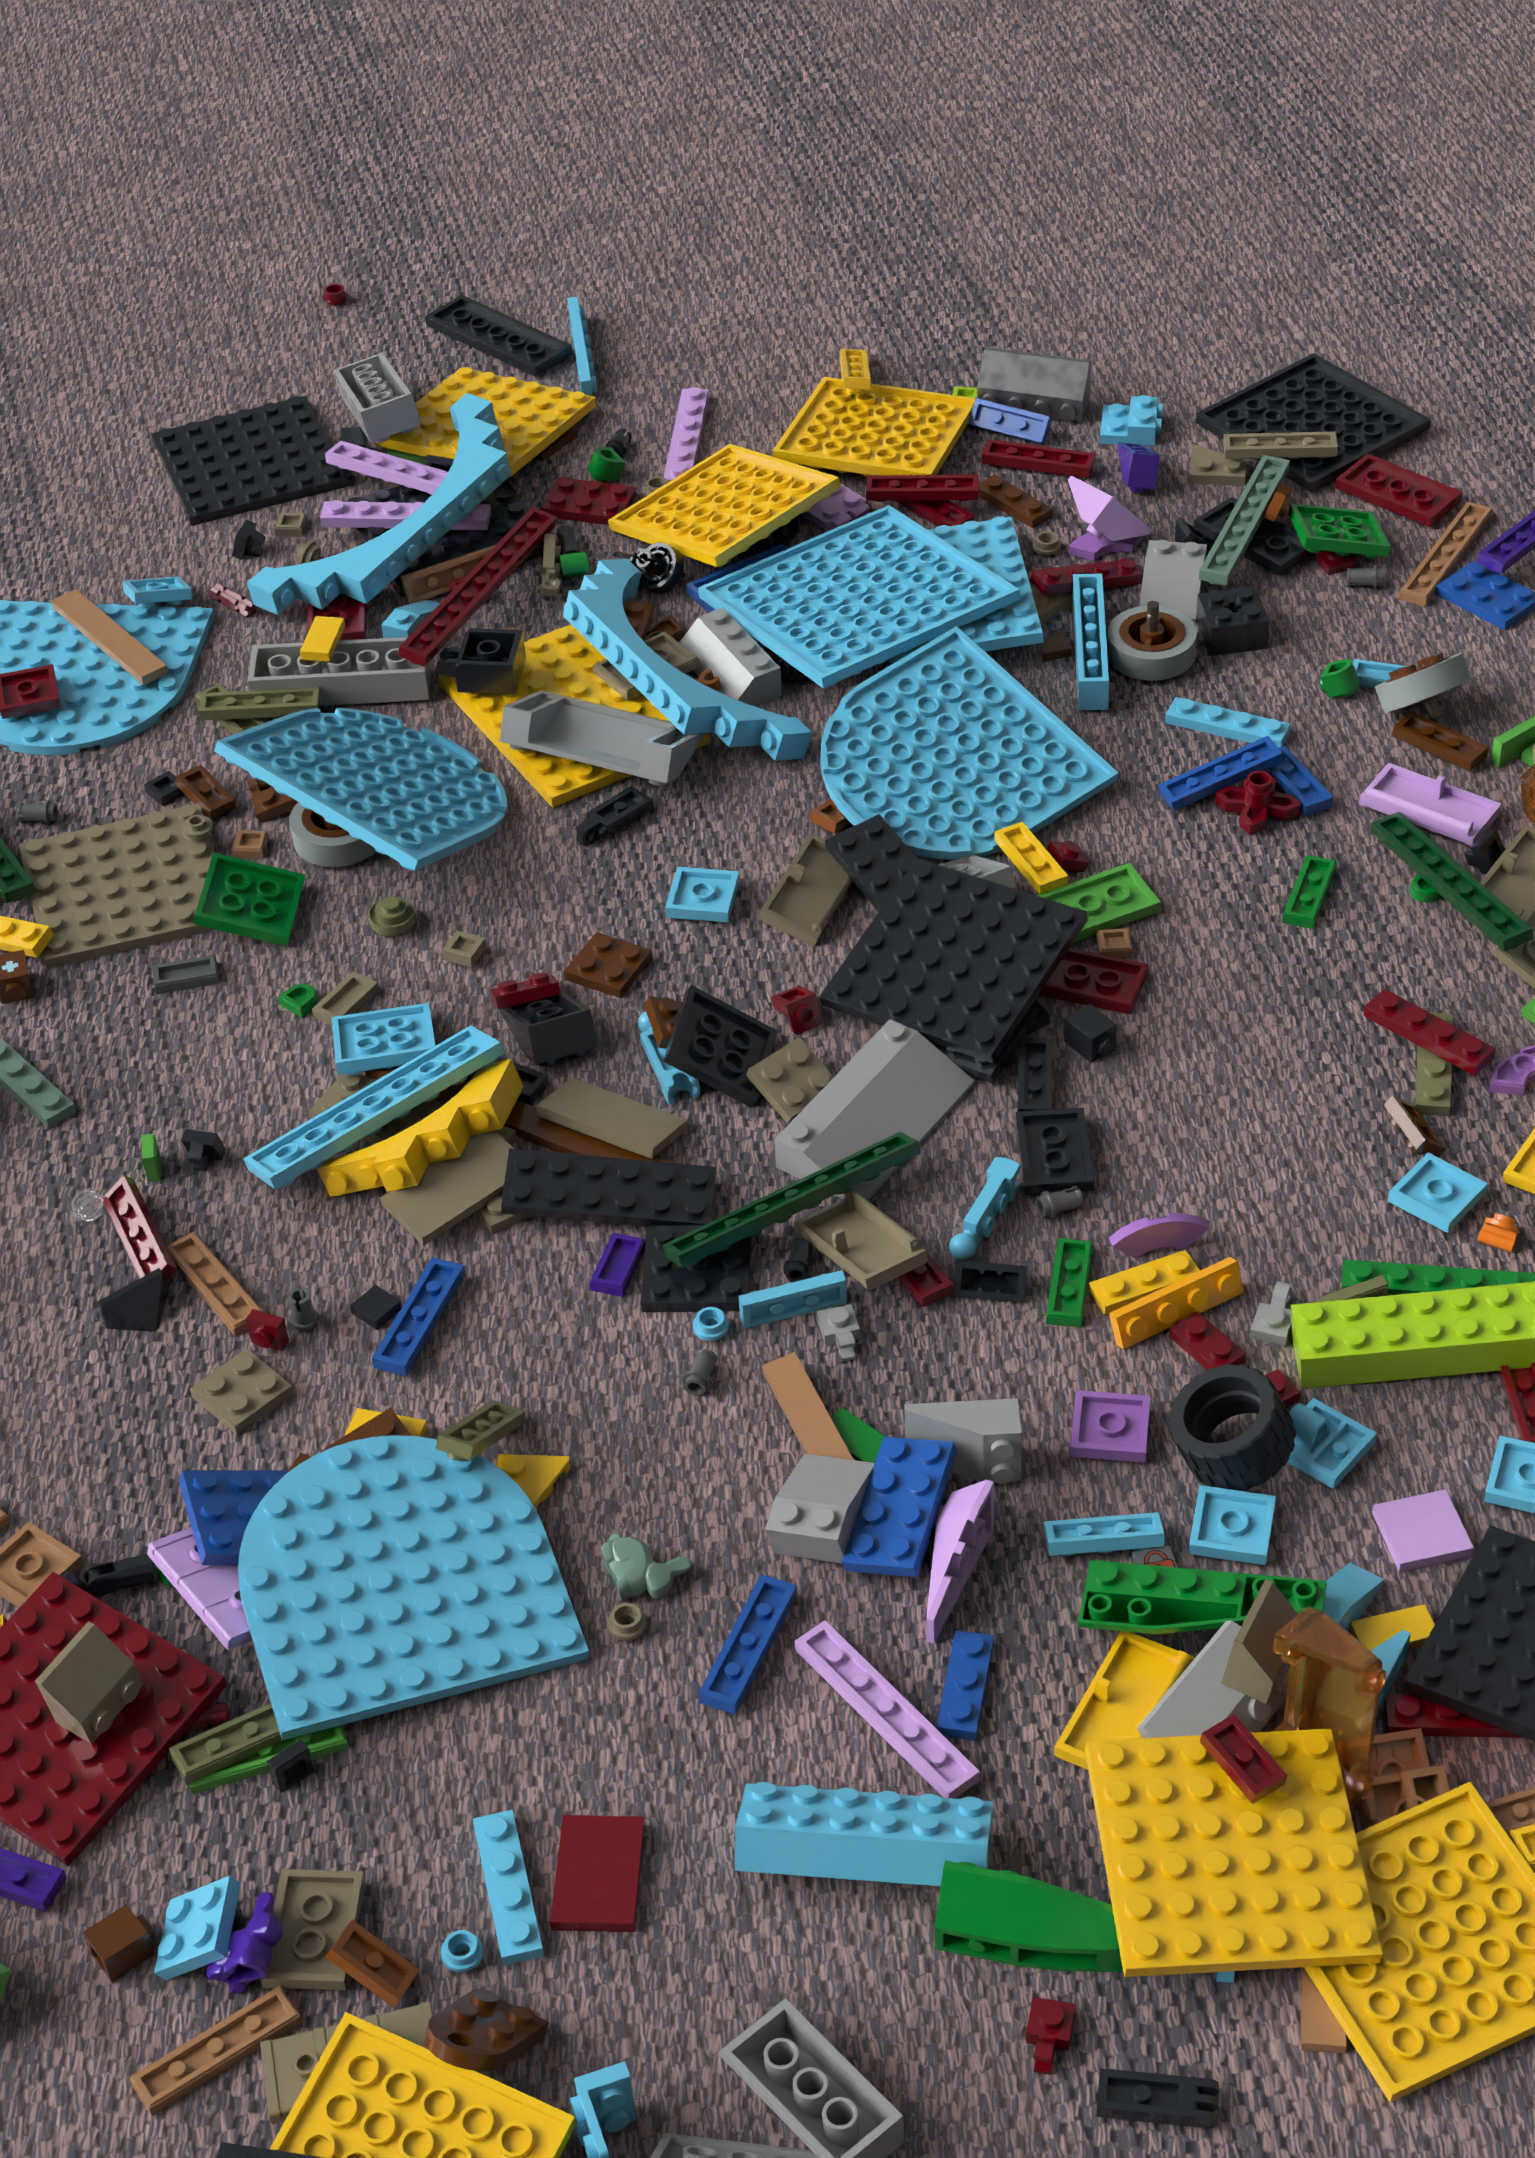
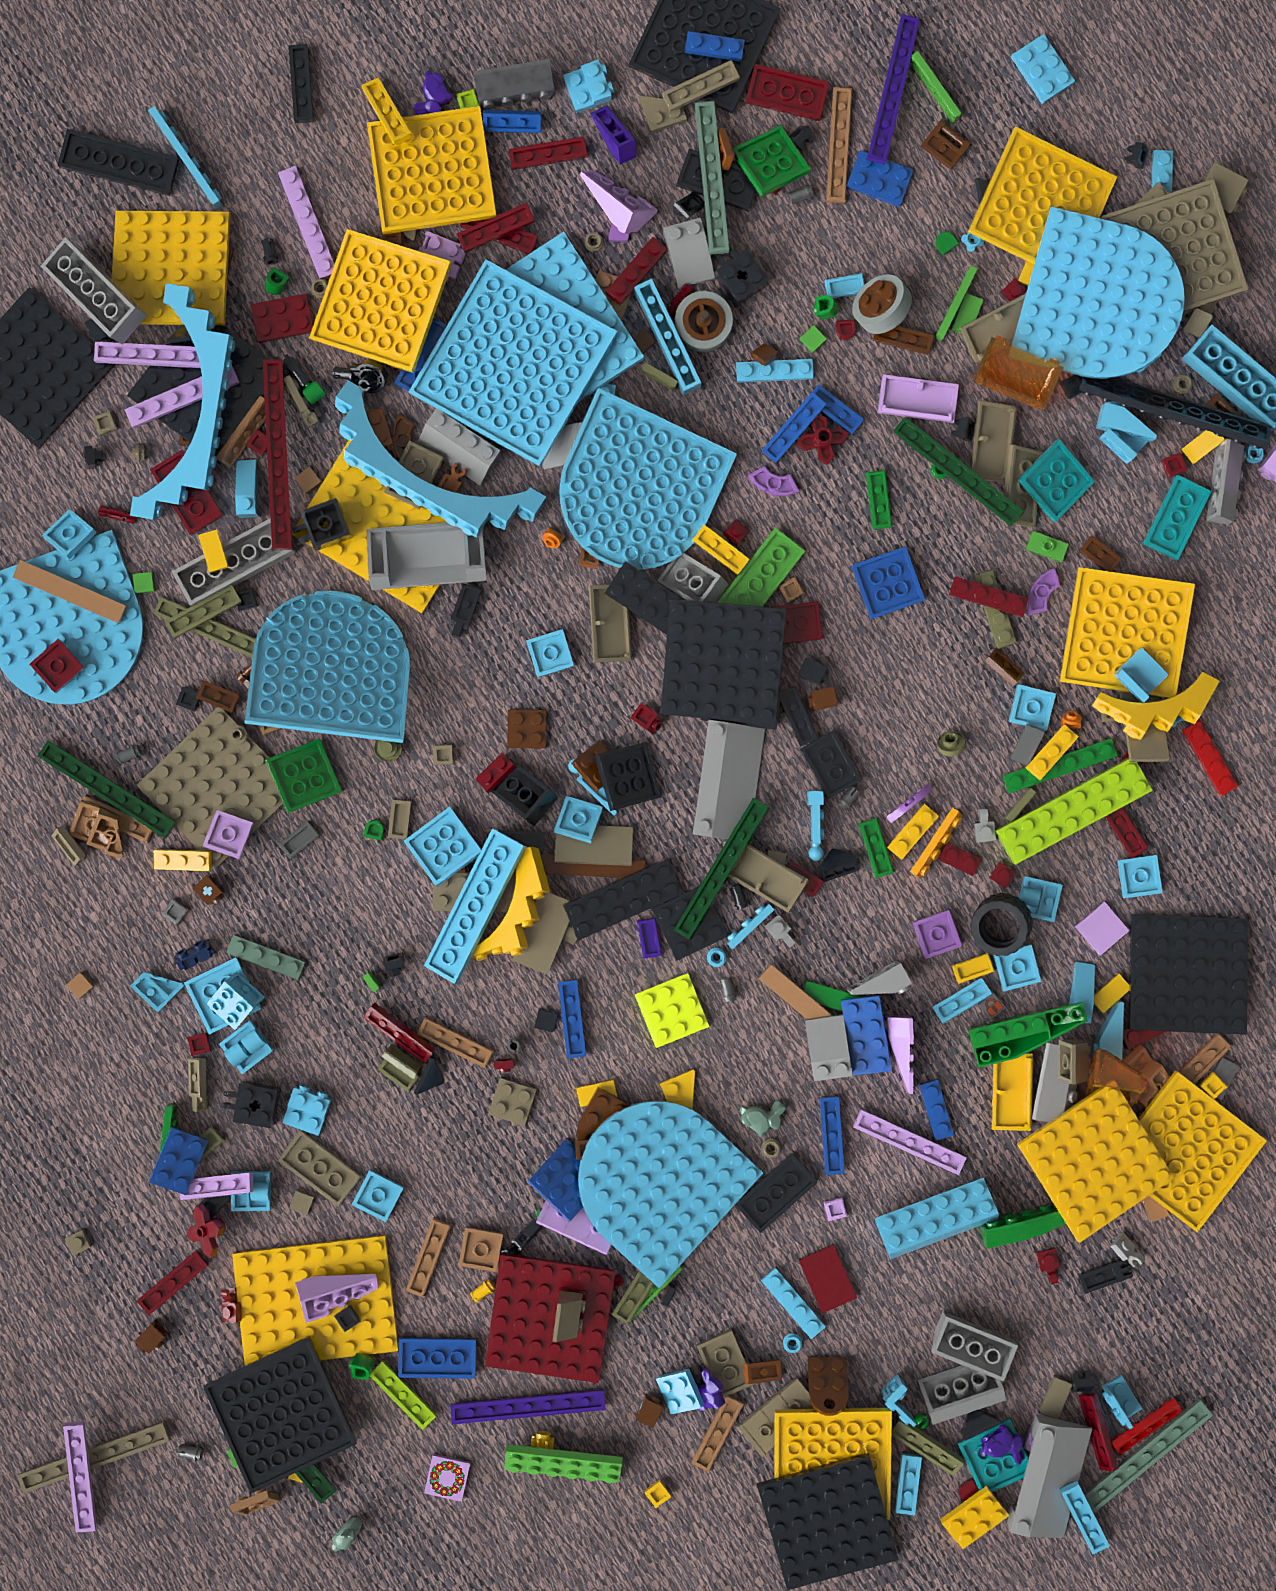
camera: 35 degrees left, 45 degrees up
(27, 2101) = (657, 1493): none -> yellow plate
(87, 1206) = (360, 1031): clear plate -> none
(92, 919) = (228, 834): none -> lavender plate
(93, 1284) = (397, 1075): none -> olive tile
(111, 1262) = (402, 1061): none -> olive tile
(208, 667) = (143, 582): none -> bright green tile
(479, 1430) = (653, 1088): olive plate -> none
(589, 1369) = (671, 1010): none -> neon yellow plate
(591, 1690) = (776, 1192): none -> black plate
(609, 1076) = (578, 819): none -> medium azure plate
(683, 1766) = (835, 1209): none -> lavender tile
(767, 333) = (301, 83): none -> black plate
(790, 1078) = (674, 776): dark tan plate -> none
(791, 785) = (552, 538): none -> orange plate
(927, 376) = (435, 94): none -> dark purple animal
(1014, 501) = (551, 203): reddish brown plate -> none
(1055, 677) = (659, 376): none -> olive tile
(1088, 1069) = (822, 699): none -> reddish brown brick
(1140, 1498) = (972, 968): none -> yellow tile
(1157, 830) = (773, 483): none -> medium lavender tile
(1221, 698) = (764, 354): none -> reddish brown tile
(1224, 2063) = (1125, 1250): none -> light grey plate
(1243, 1758) = (1090, 1126): dark red plate -> none
(1272, 977) = (887, 583): none -> blue plate
(1272, 1187) = (951, 743): none -> olive plate
(1303, 709) = (813, 339): none -> bright green tile
(1311, 419) = (714, 46): none -> blue plate
(1358, 714) = (845, 329): none -> dark red tile
(1397, 525) = (800, 135): none -> black tile
(1405, 1230) = (1027, 744): none -> dark grey tile
(1443, 1249) = (1052, 752): none -> yellow plate

